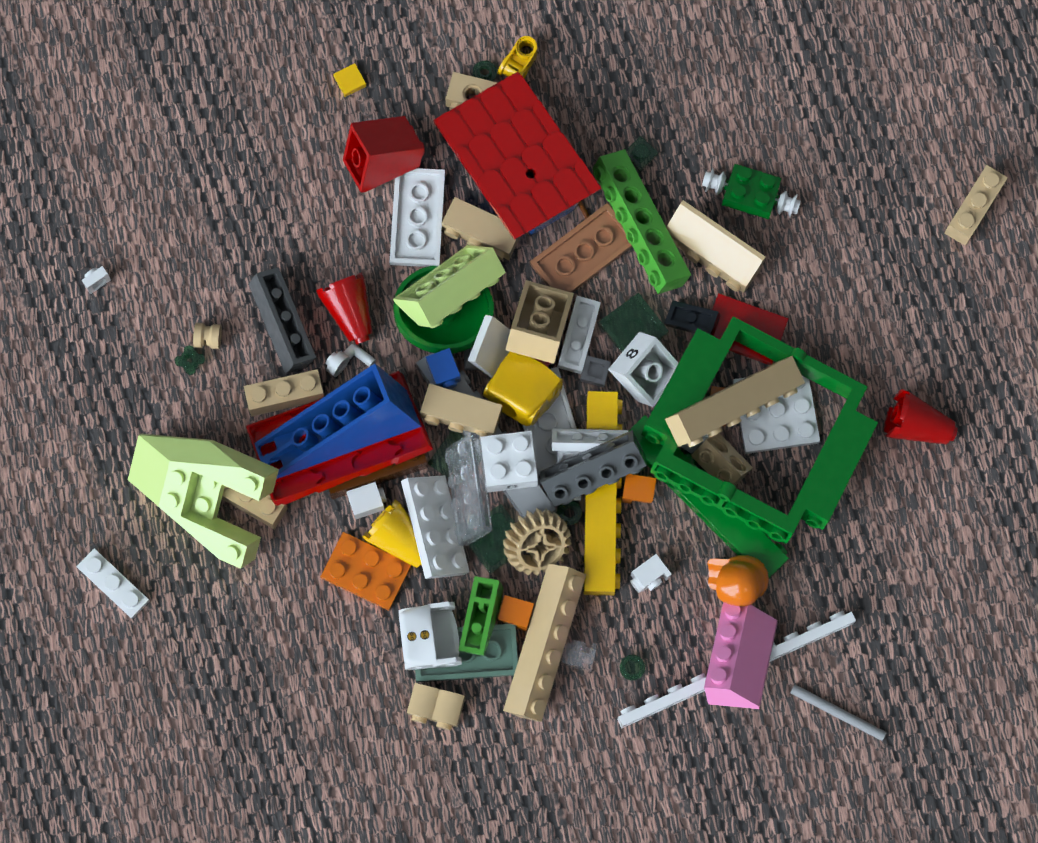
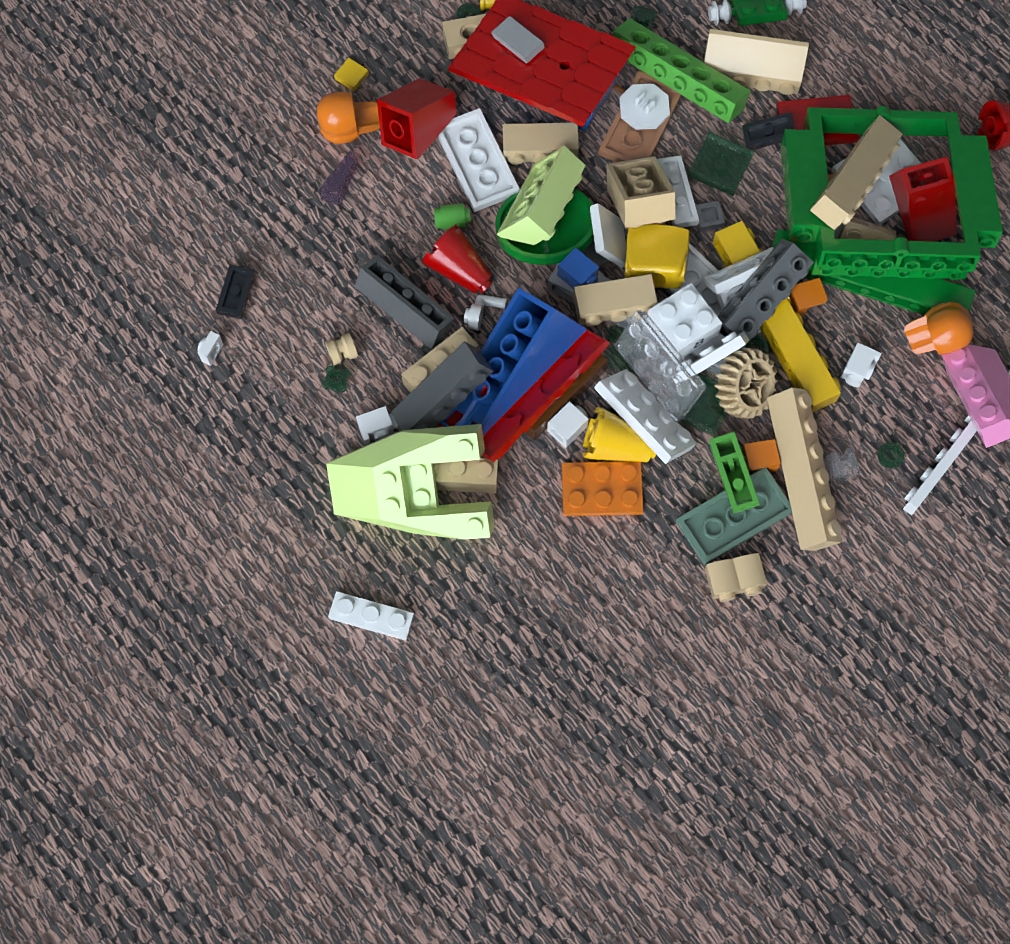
camera: 25 degrees left, 5 degrees down
(144, 238) = (235, 291): none -> black plate
(201, 420) = (376, 425): none -> white brick
(267, 420) = (443, 389): none -> dark grey brick
(284, 179) = (337, 183): none -> clear purple slope
(310, 121) = (344, 120): none -> orange piece
(366, 260) = (451, 214): none -> bright green brick
(429, 636) = (697, 515): white piece -> none
(503, 127) = (518, 39): none -> light grey tile
(516, 503) = (712, 355): none -> white plate
(592, 240) = (644, 106): none -> white piece
(644, 368) = (755, 189): white brick -> none
(791, 453) = (926, 200): none -> red slope

